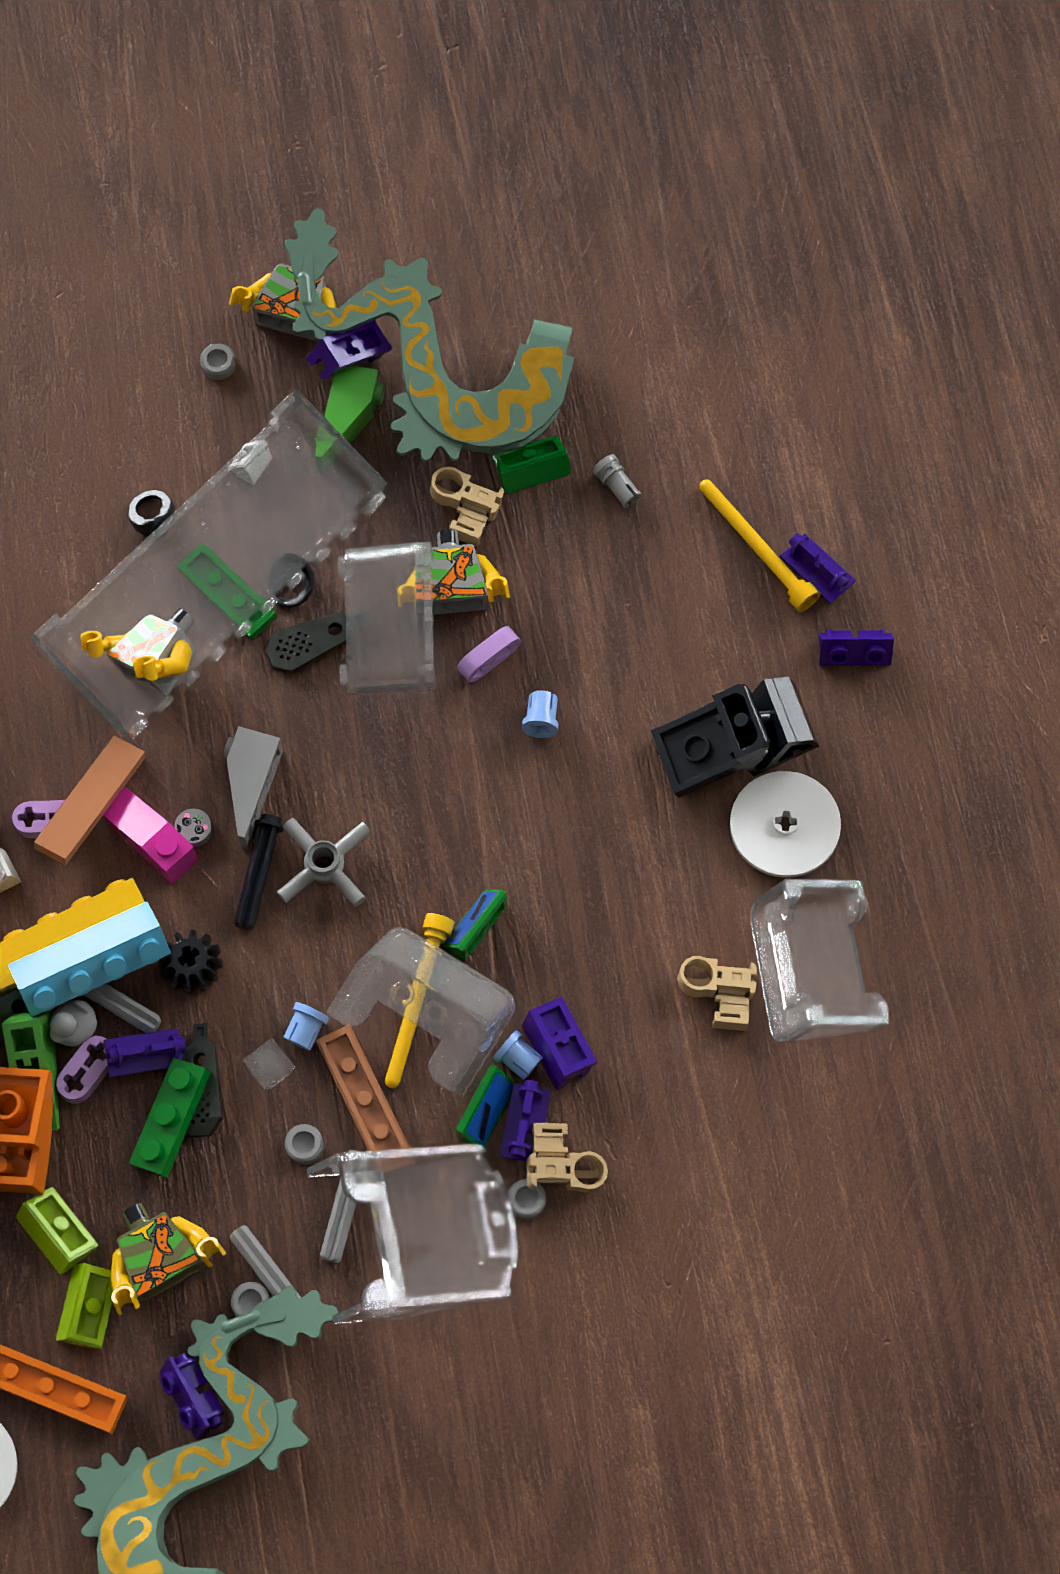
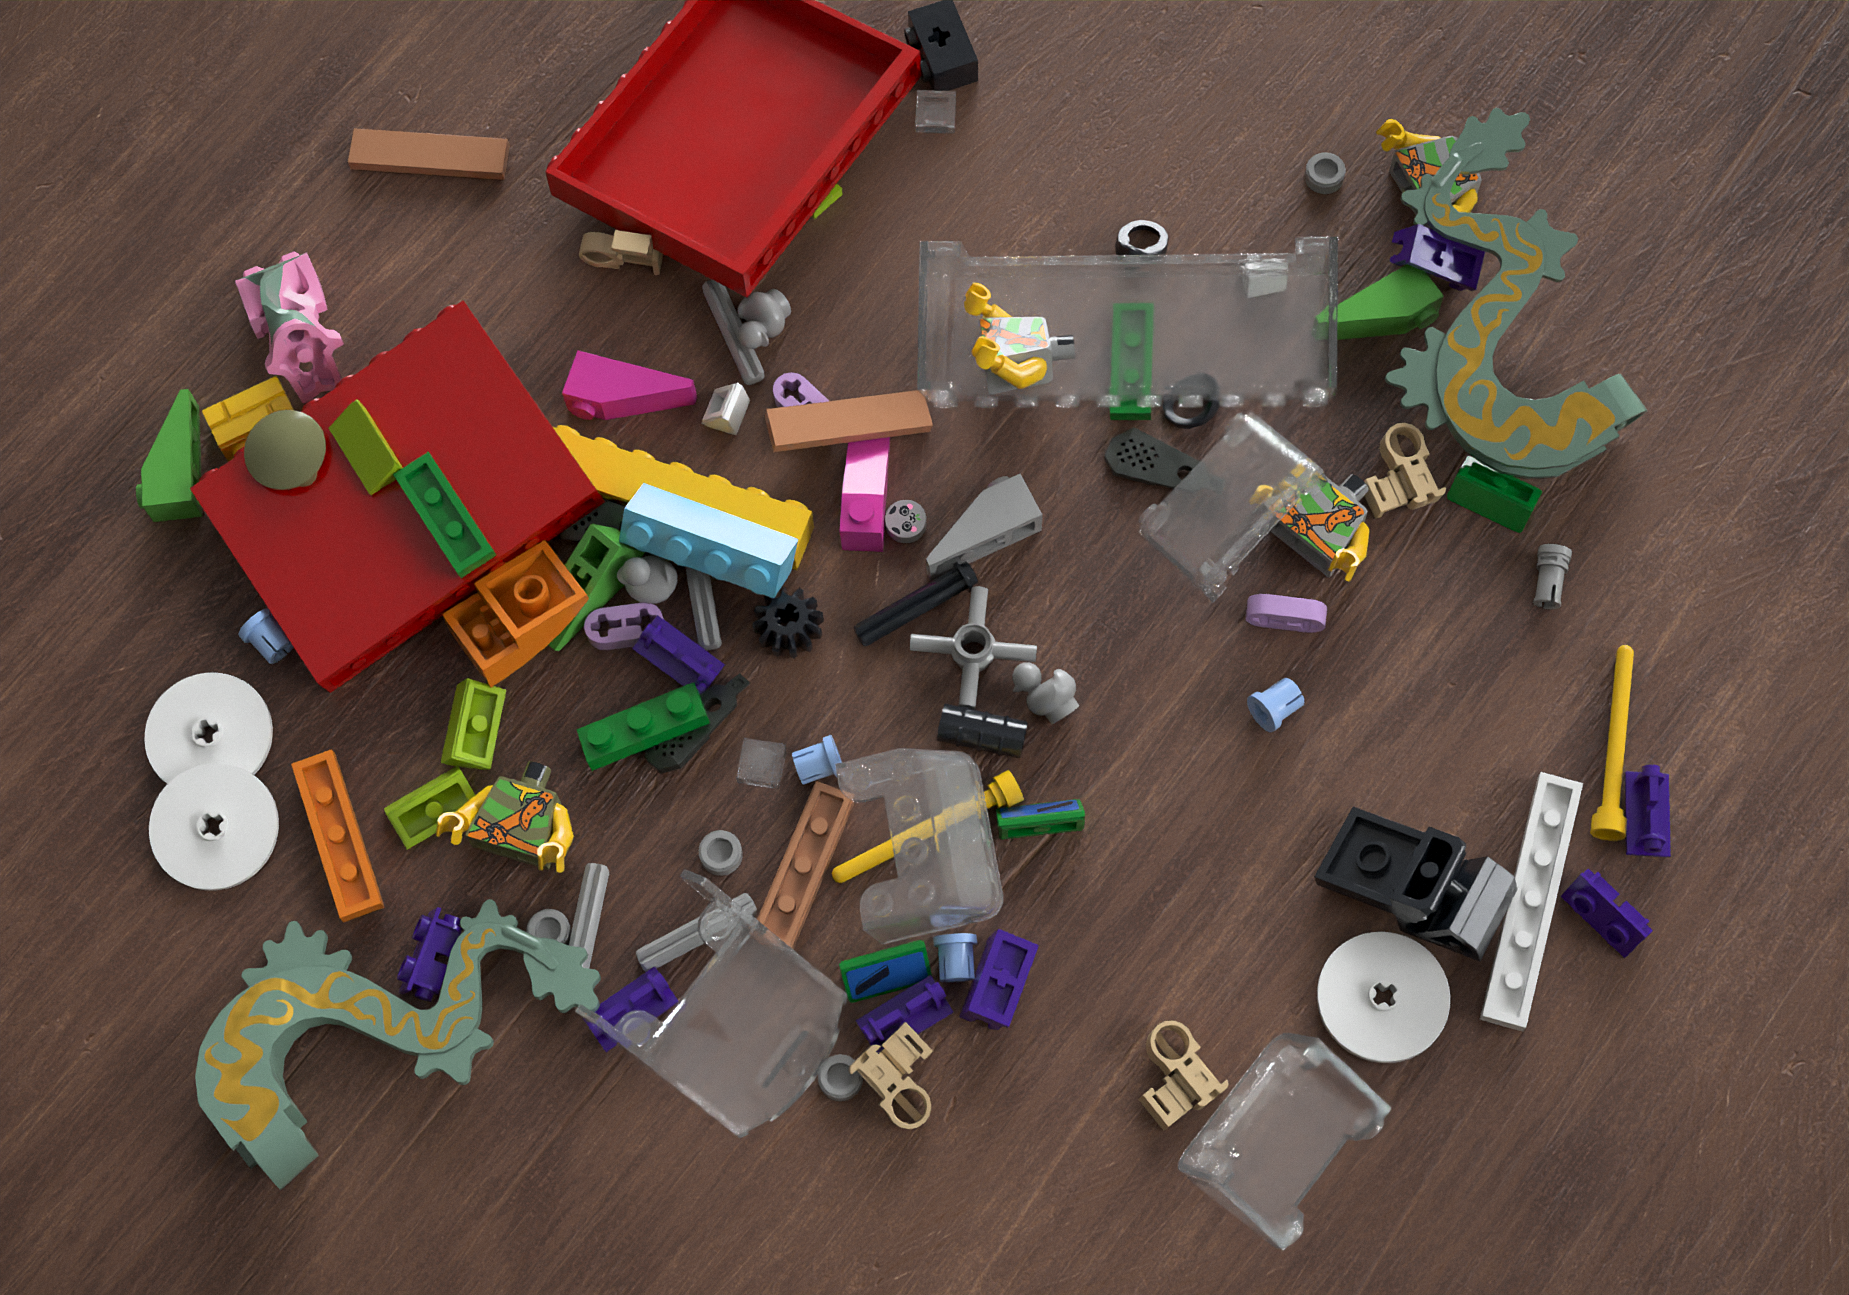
camera: 50 degrees right, 0 degrees up
(354, 1274) = (646, 993): none -> dark purple hinge
(385, 906) = (982, 731): none -> black axle
(405, 844) = (1051, 698): none -> light grey animal
(820, 698) = (1532, 907): none -> white plate

